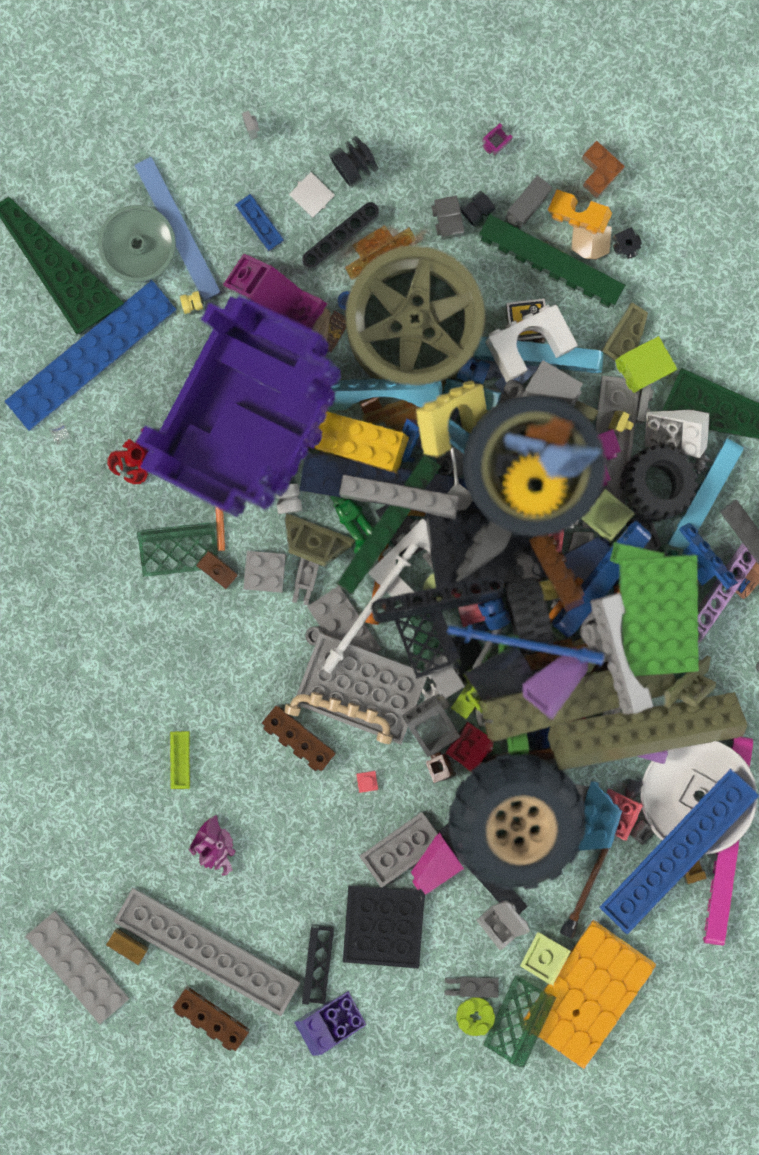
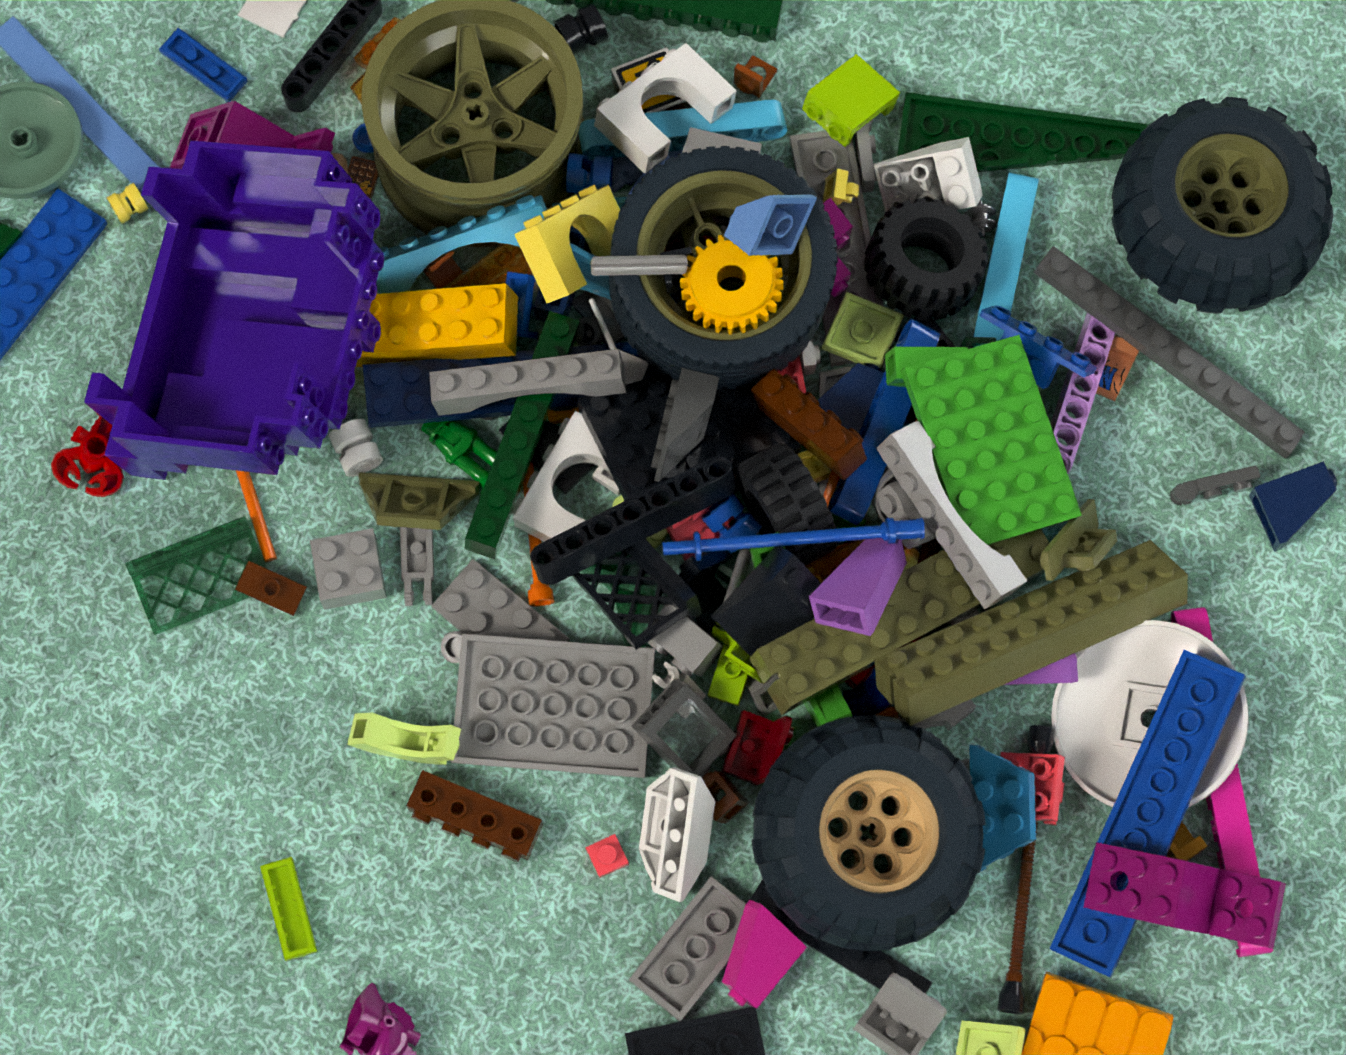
camera: 15 degrees left, 15 degrees down
(271, 683) = (404, 740): none -> yellowish green arch
(337, 653) = (499, 654): white bar -> none
(351, 711) = (547, 743): tan bar -> none
(408, 784) = (676, 832): none -> white wedge
(484, 461) = (639, 265): none -> light grey axle
(495, 268) = (582, 29): none -> black wheel
(524, 445) = (695, 230): medium blue plate -> none
(552, 433) = (714, 211): dark orange tile -> none
(586, 332) = (751, 82): none -> dark orange bracket
(627, 332) = (807, 65): olive wing -> none
(641, 832) = (1078, 806): dark grey plate -> none
(683, 905) = (1184, 895): none -> magenta bracket

